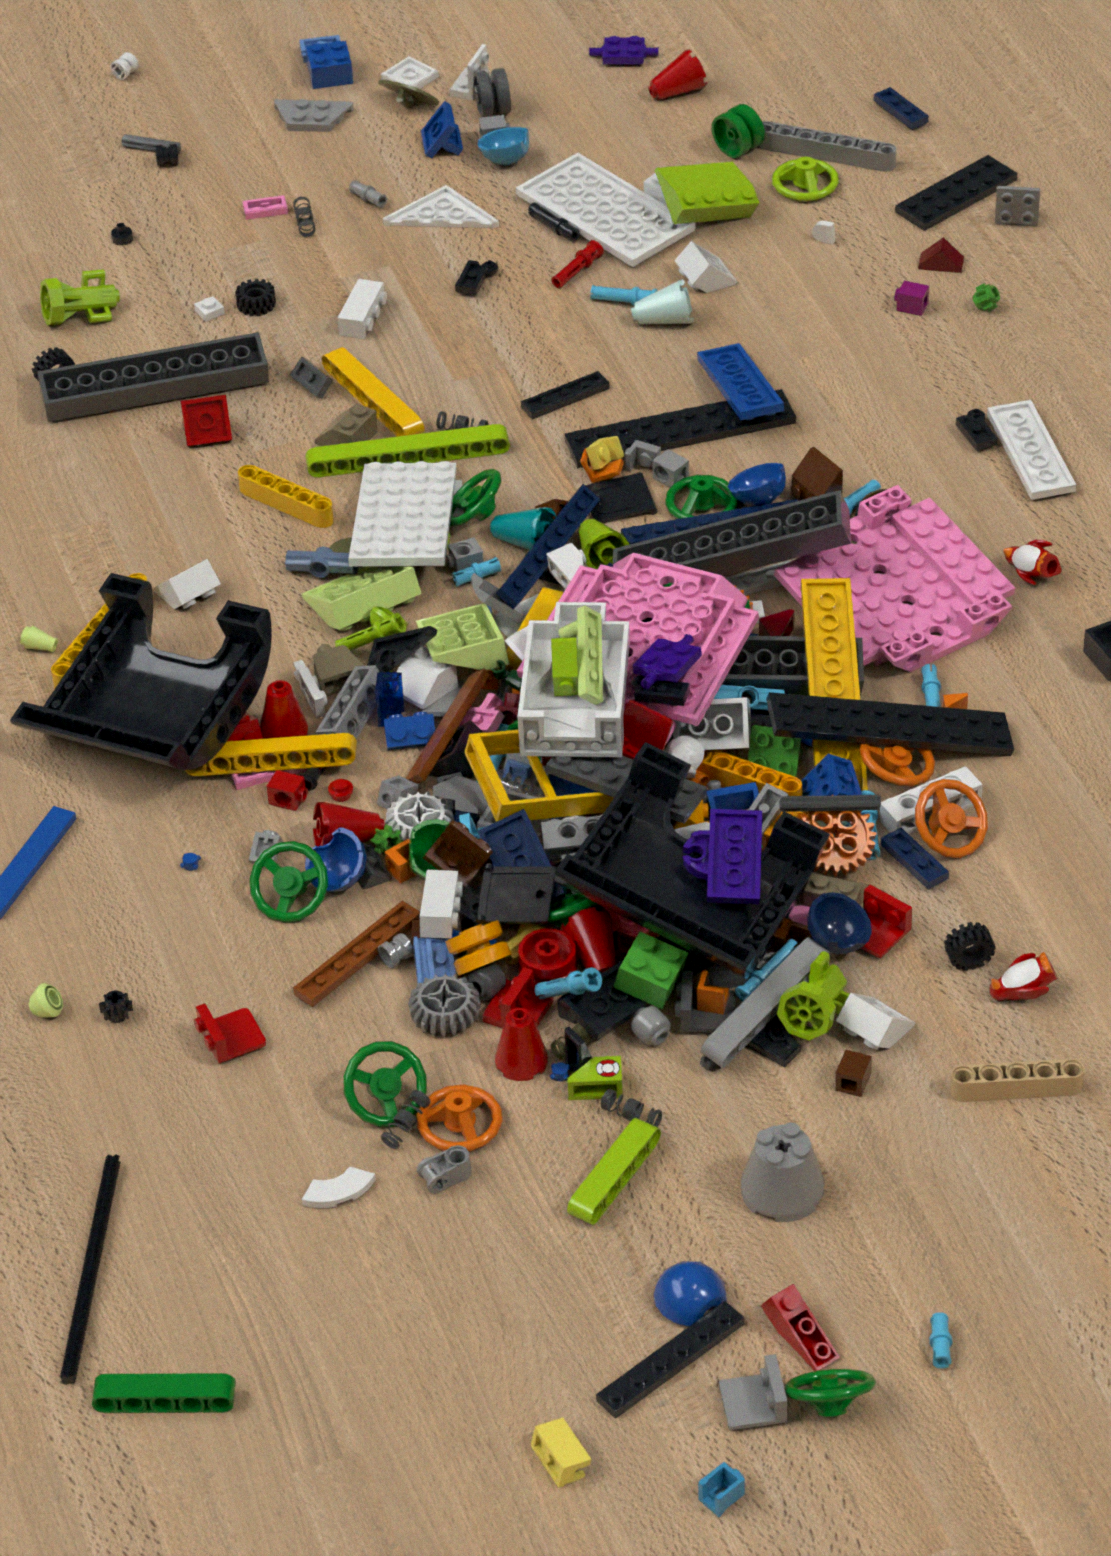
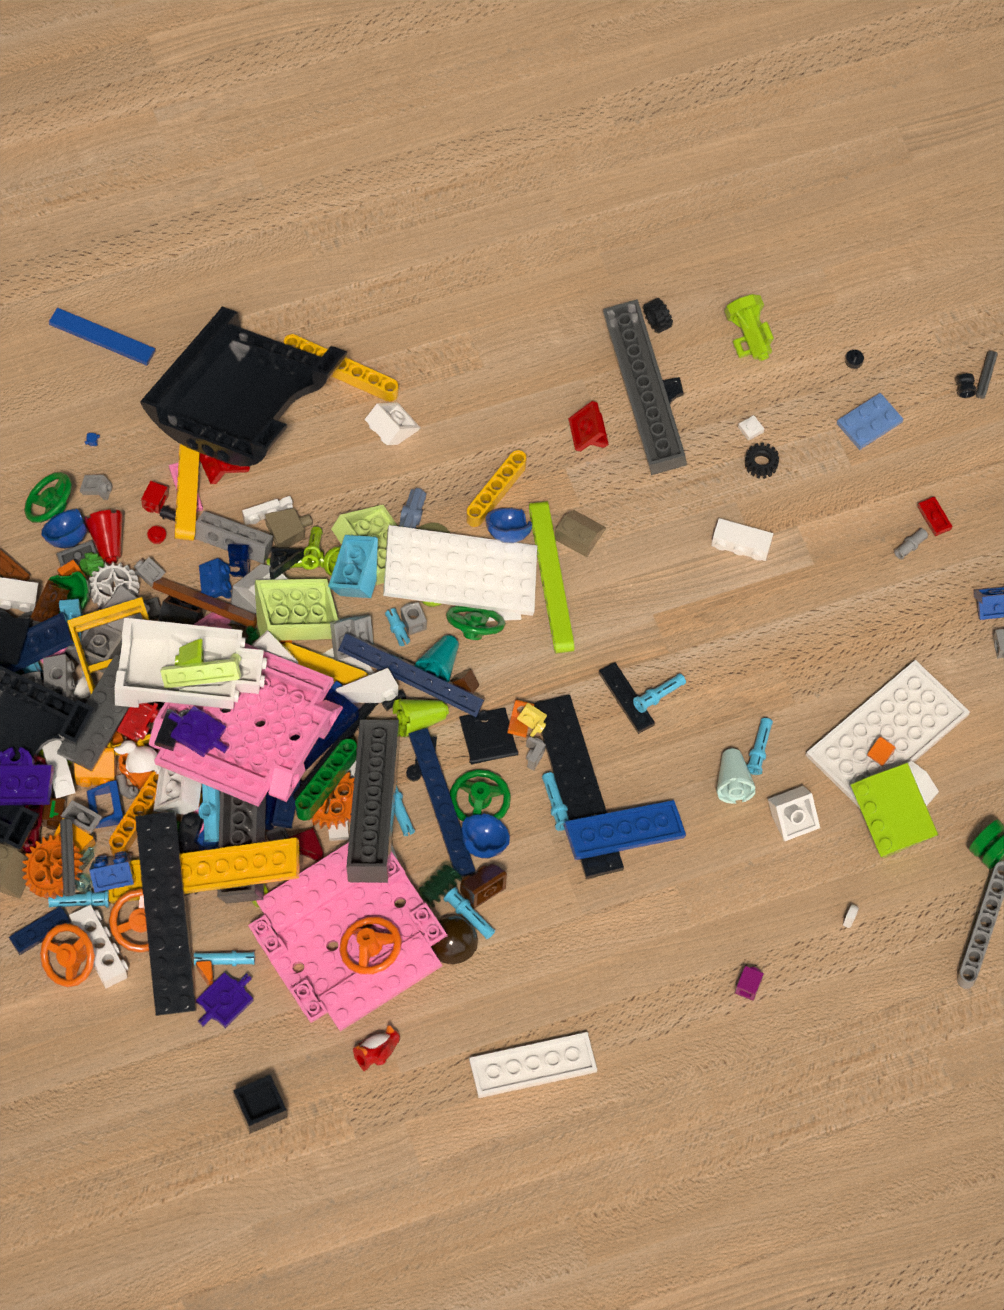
camera: 85 degrees right, 20 degrees up
(37, 639) = (337, 327): yellowish green cone -> none
(206, 224) = (869, 421): none -> medium blue plate
(265, 207) = (898, 478): bright pink tile -> none
(282, 713) = (228, 492): red cone -> none
(305, 221) = (877, 494): dark grey piece -> none
(311, 377) = (650, 503): dark grey plate -> none
(333, 177) = (934, 516): none -> red plate
(343, 480) = (508, 525): none -> blue cylinder
(372, 393) = (626, 549): yellow beam -> none
(402, 587) = (355, 567): none -> medium azure slope
(442, 209) = (890, 604): white tile -> none
(461, 421) = (585, 616): dark grey piece -> none
(474, 276) = (789, 627): black hinge -> none
(505, 145) = (975, 648): dark azure cylinder -> none
(559, 225) = (865, 694): black pin -> none
(567, 366) = (653, 696): none -> medium azure pin
(583, 259) = (813, 714): red pin -> none
(630, 204) = (881, 751): none -> orange slope
(670, 468) = (517, 773): light grey brick -> none
(712, 438) = (558, 808): none -> medium azure pin
(803, 173) = (936, 905): lime piece -> none
(913, 553) = (370, 944): none -> orange piece
(941, 257) = (812, 1015): dark red slope -> none
(955, 192) = (919, 1037): black plate -> none
(976, 430) = (563, 1021): black hinge -> none
(986, 297) = (747, 1045): bright green gear -> none
(988, 690) = (224, 1000): none -> dark purple plate
(1017, 205) = (885, 1086): light grey bracket -> none

